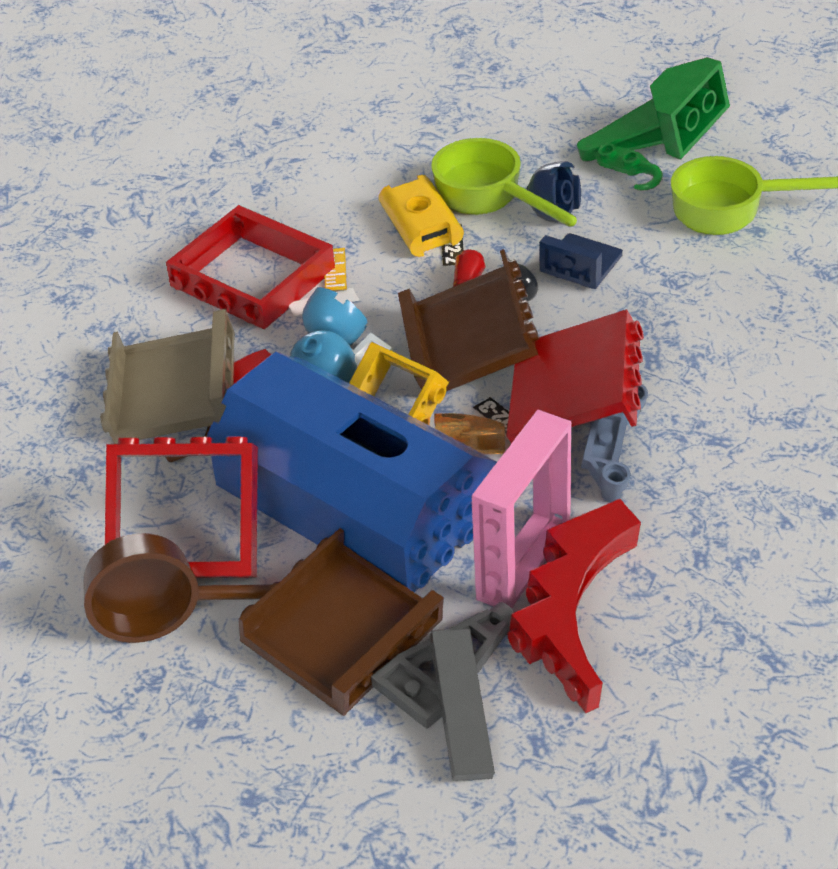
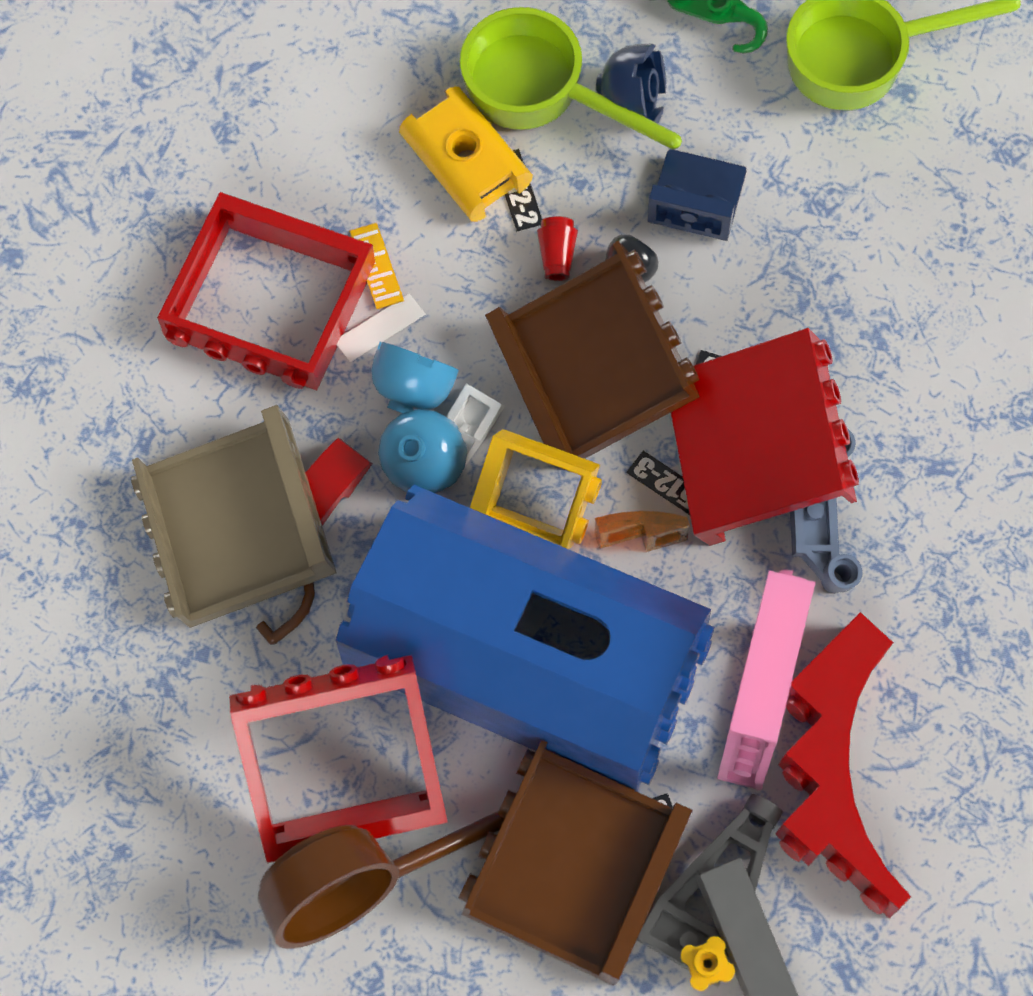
camera: 15 degrees left, 25 degrees up
(422, 706) = (719, 971): none -> yellow plate

